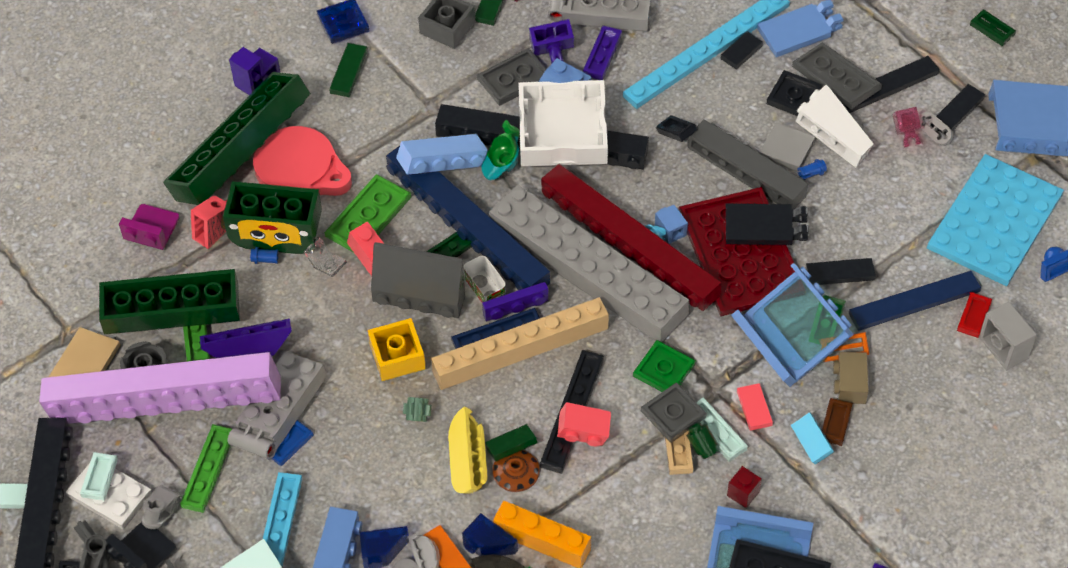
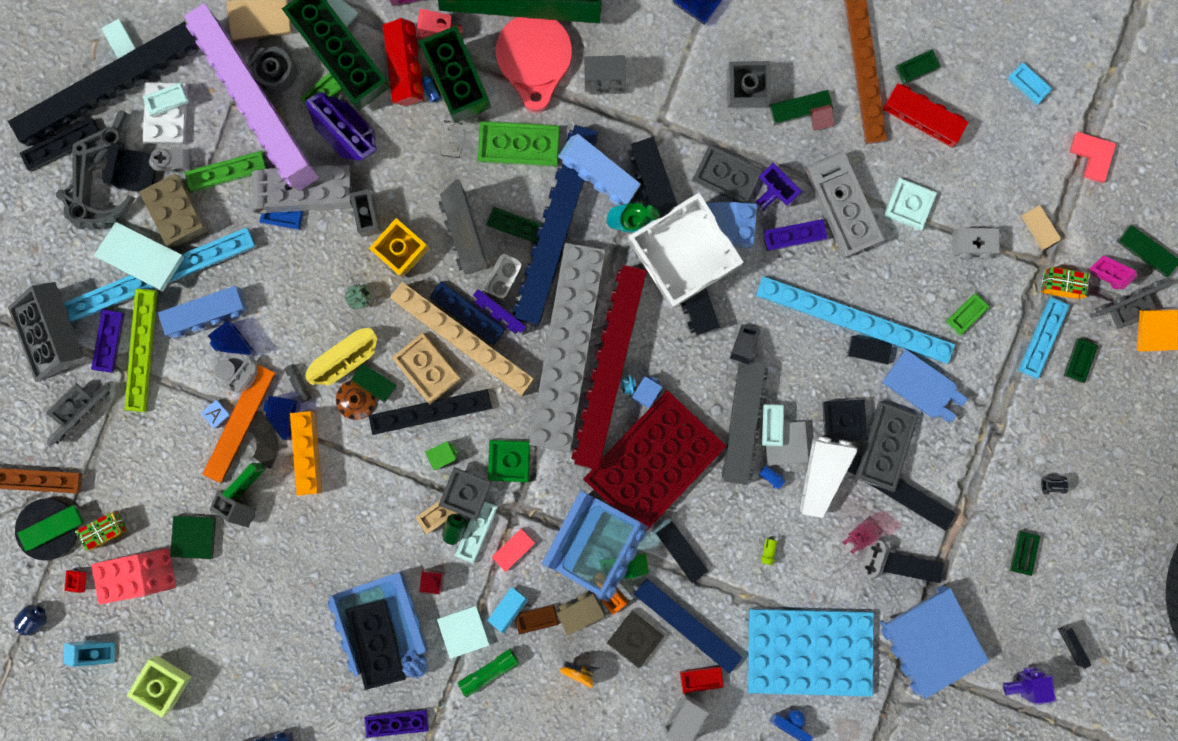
camera: 60 degrees right, 30 degrees up
(213, 528) = (174, 211): none -> dark tan brick
(216, 257) = (403, 62): none -> red brick
(342, 360) = (365, 213): none -> dark grey brick
(348, 70) = (653, 34): dark green tile -> none
(358, 112) = (605, 74): none -> dark grey brick
(361, 242) = (478, 169): coral brick -> none
(464, 510) = (297, 383): none -> dark grey axle
(527, 390) = (426, 368): none -> tan tile
(584, 424) = (414, 432): coral brick -> none
(622, 417) = (442, 455): none -> bright green brick
(765, 144) = (772, 425): none -> light aqua tile
(765, 224) = (685, 468): black tile -> none
(811, 490) = (463, 632): none -> light aqua tile
(820, 544) = (414, 664): none -> medium blue gear
(867, 491) = (487, 673): none -> green axle
(880, 203) = (769, 552): none -> lime pin
(904, 348) = (635, 639): none -> clear smoke tile
(911, 404) = (578, 673): none -> piece

